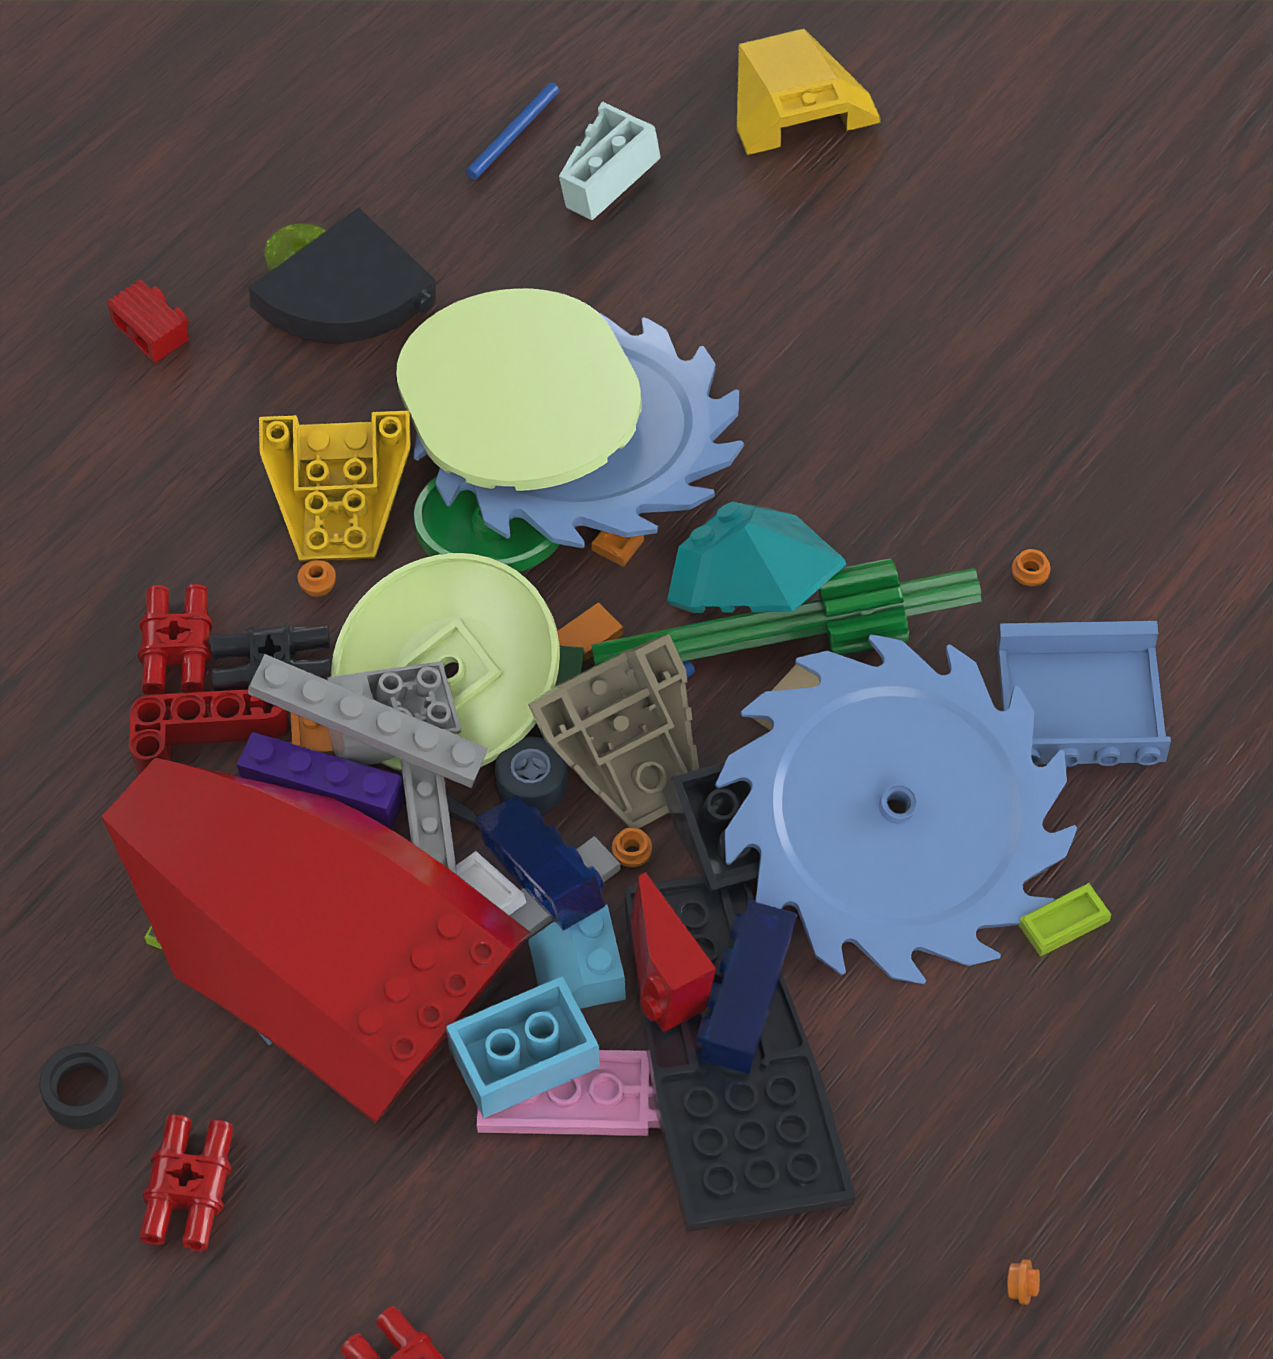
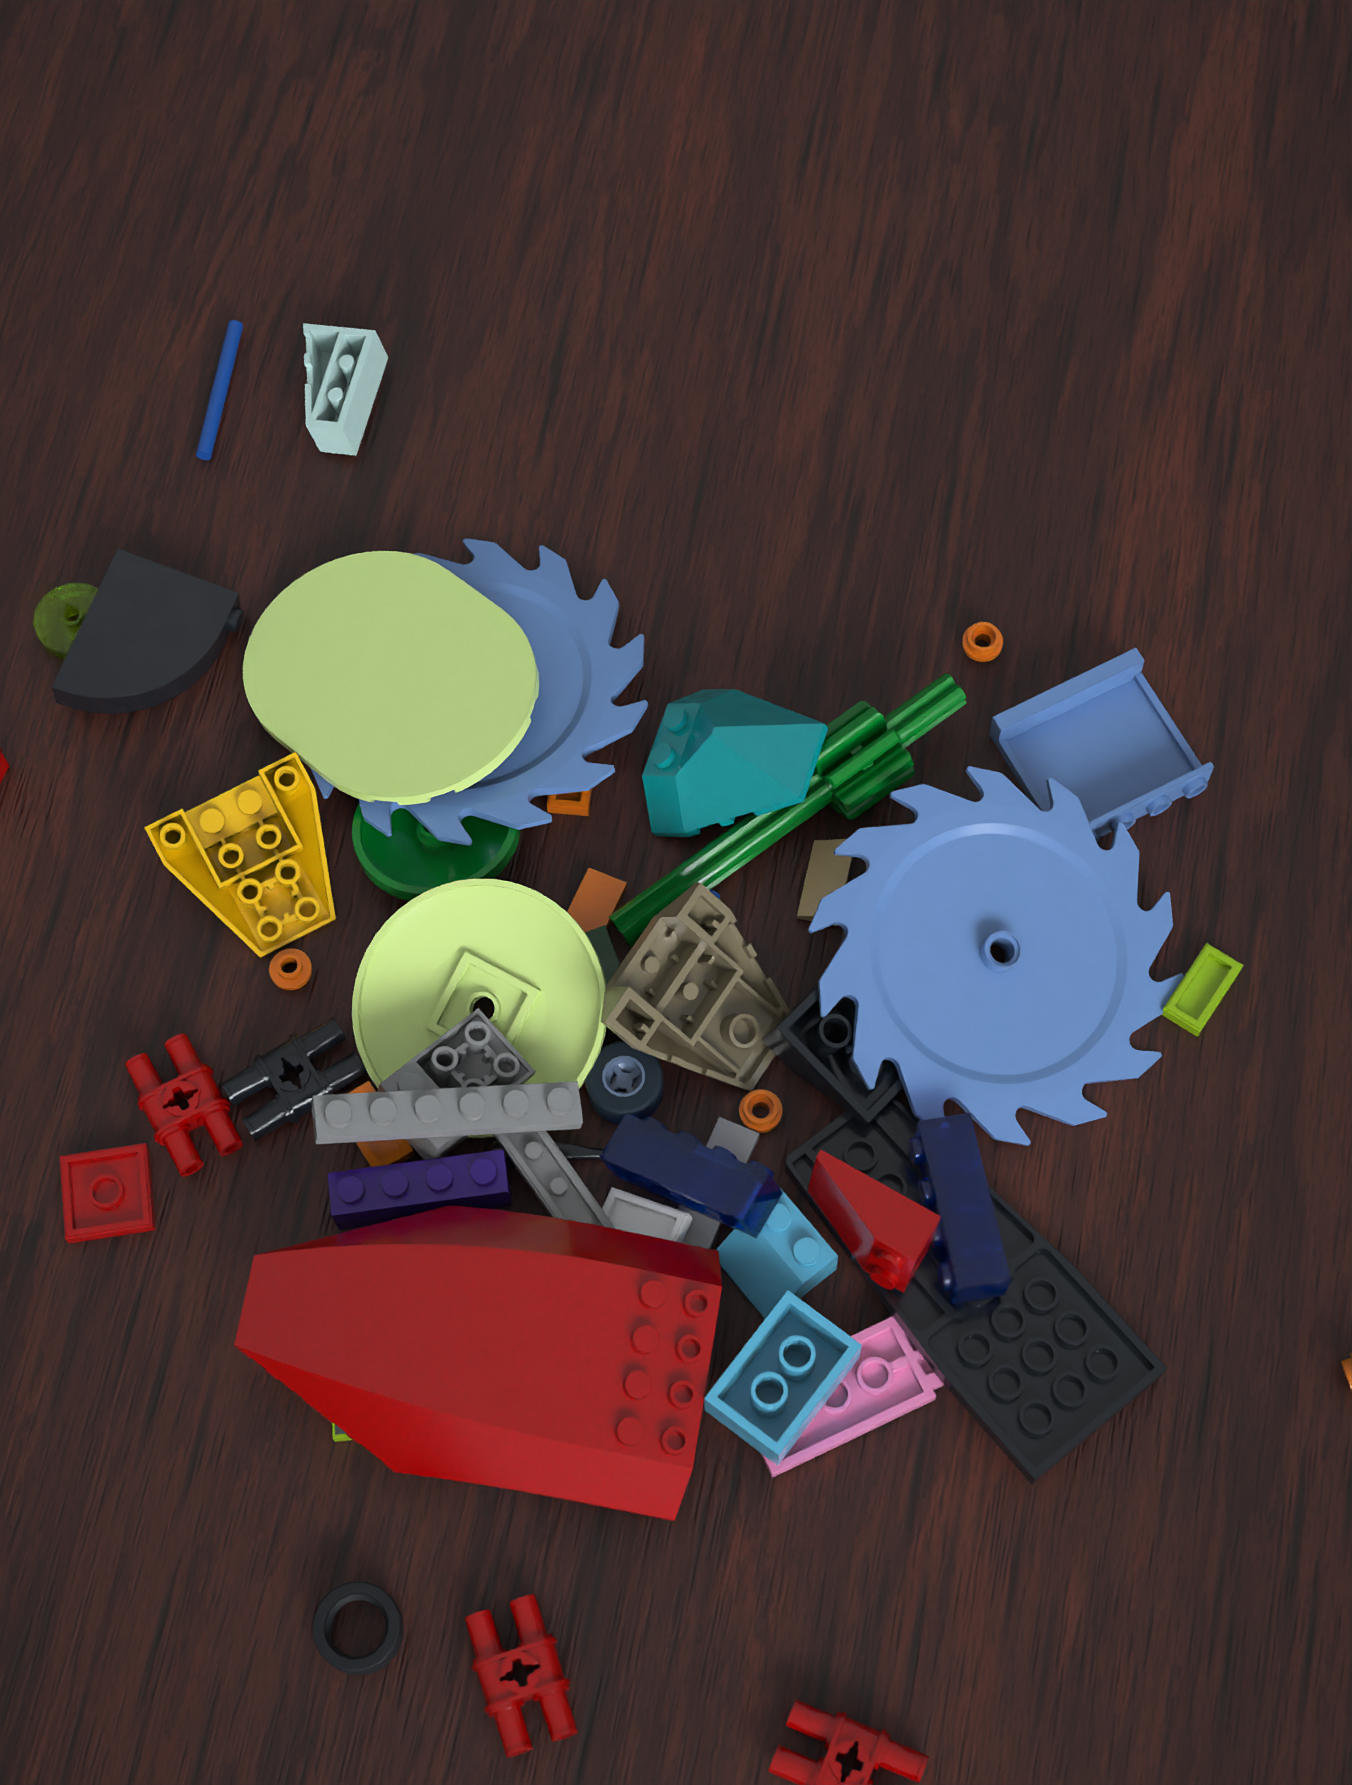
camera: 25 degrees left, 10 degrees up
(80, 680) = (107, 1193): none -> red tile
(207, 726) = (270, 1184): red beam -> none
(790, 83) = (481, 226): yellow wedge -> none

